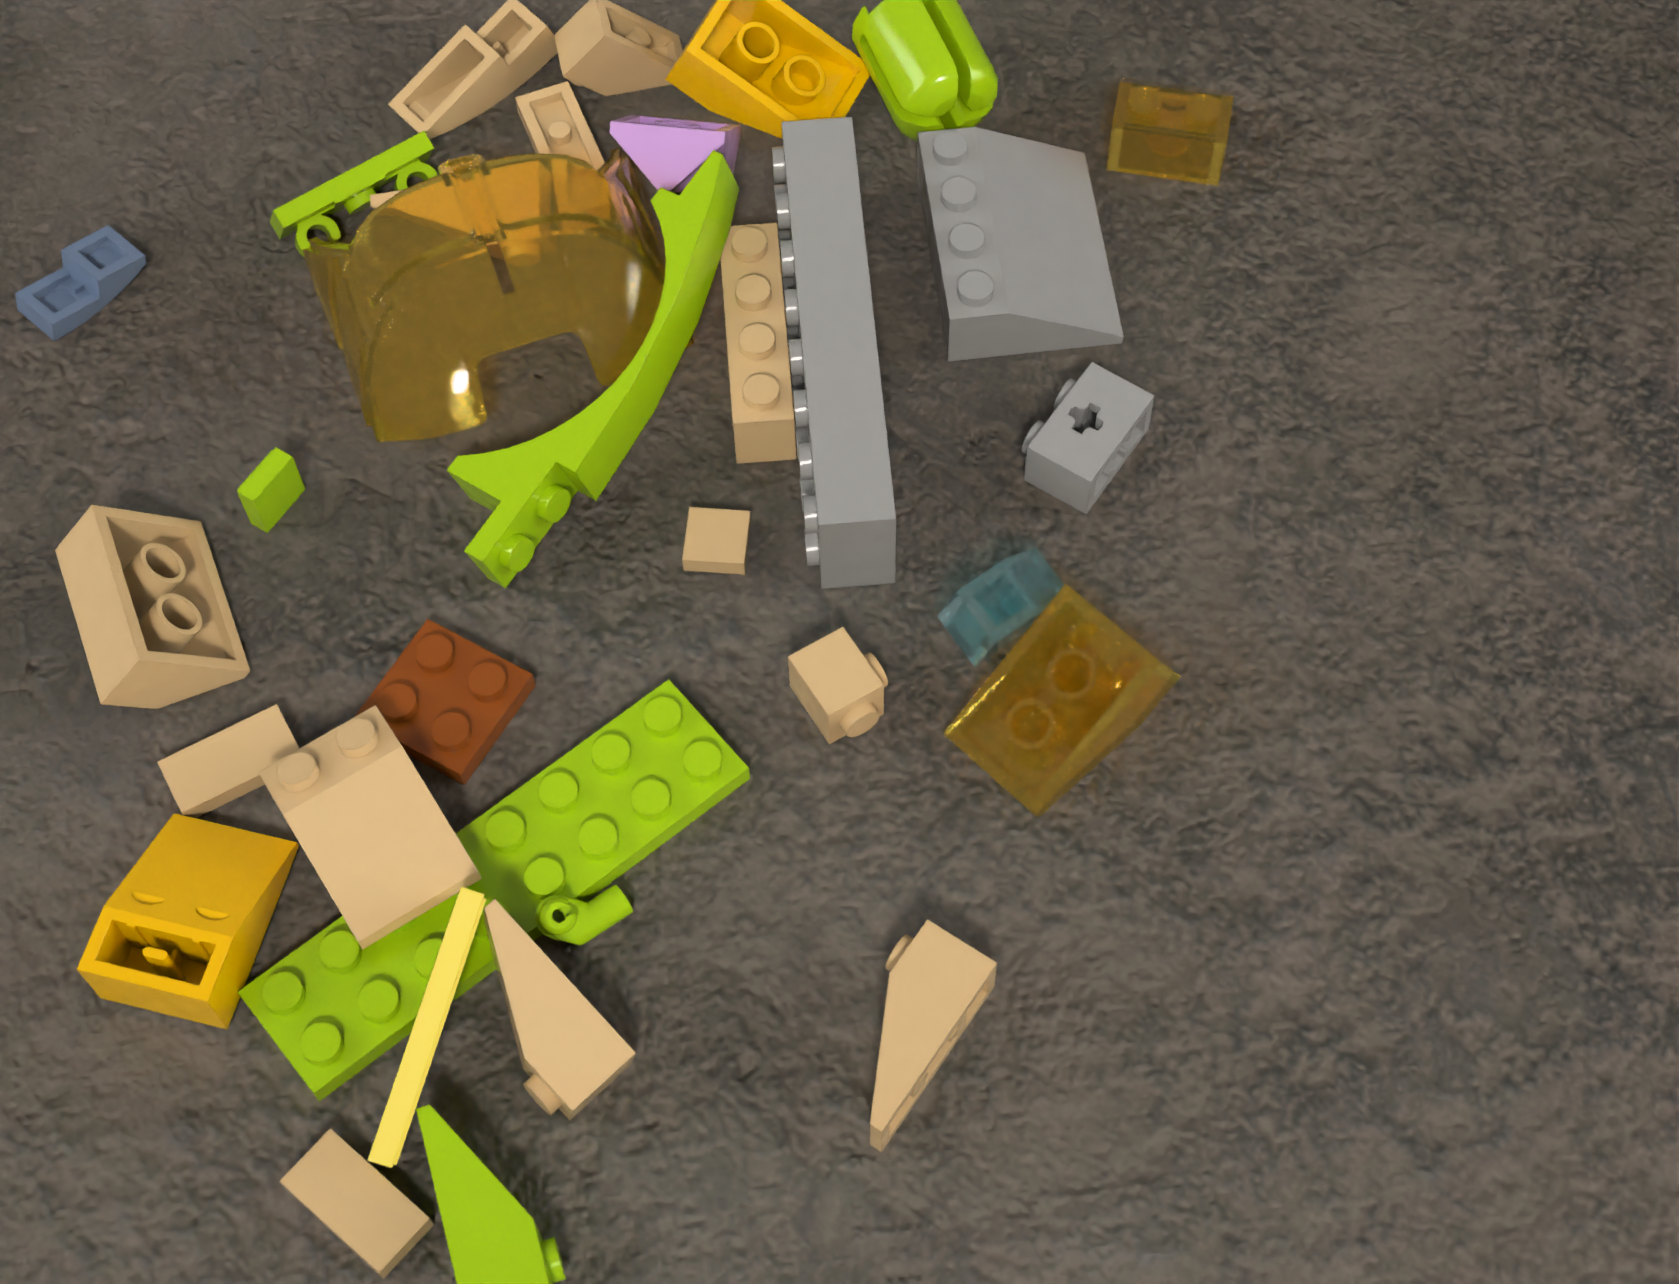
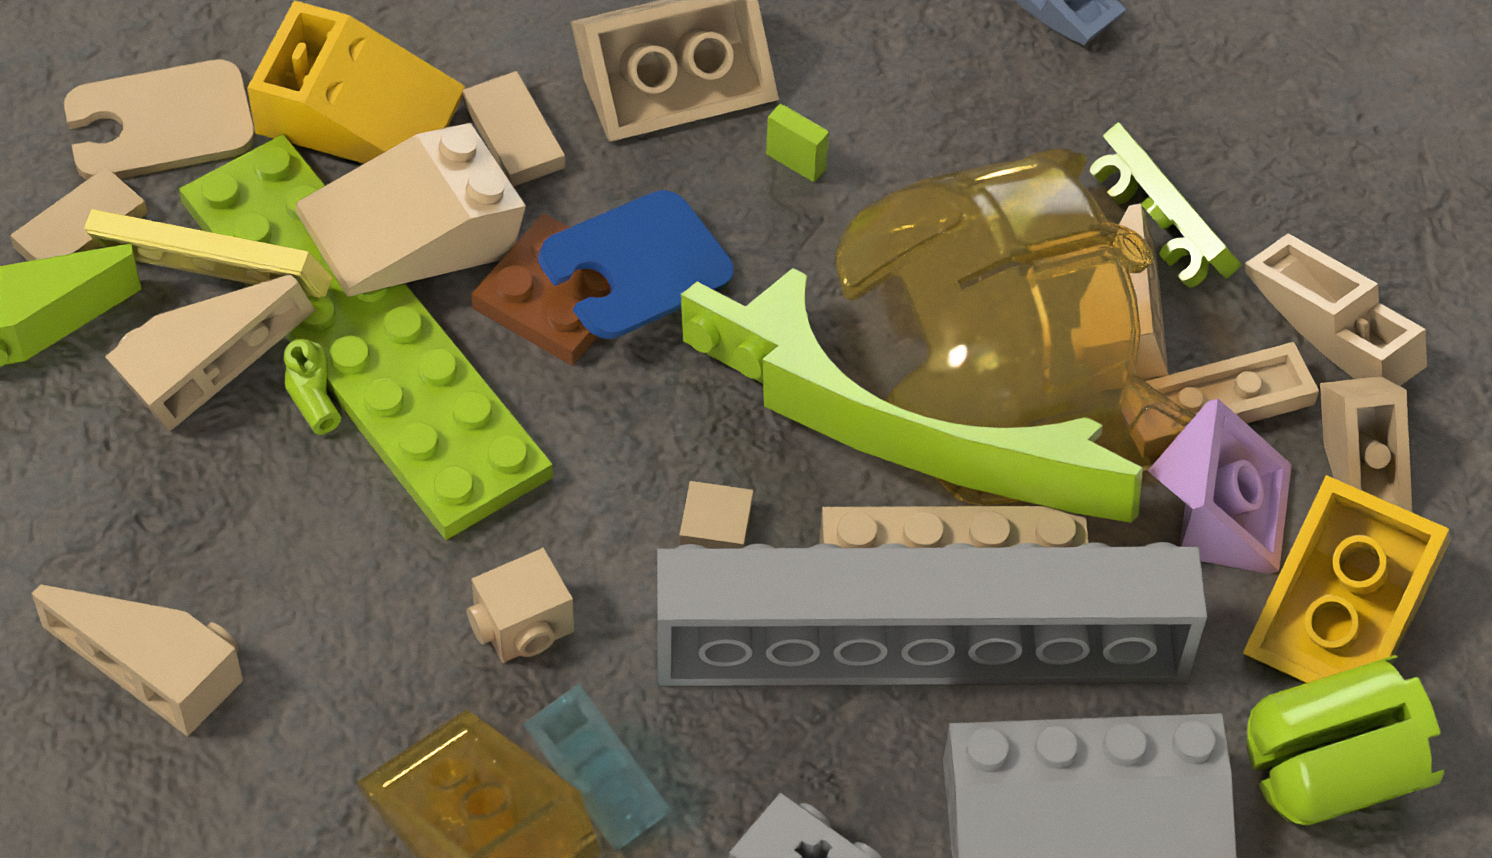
camera: 90 degrees right, 5 degrees down
(192, 1123) = (166, 117): none -> tan piece
(419, 606) = (648, 256): none -> blue piece

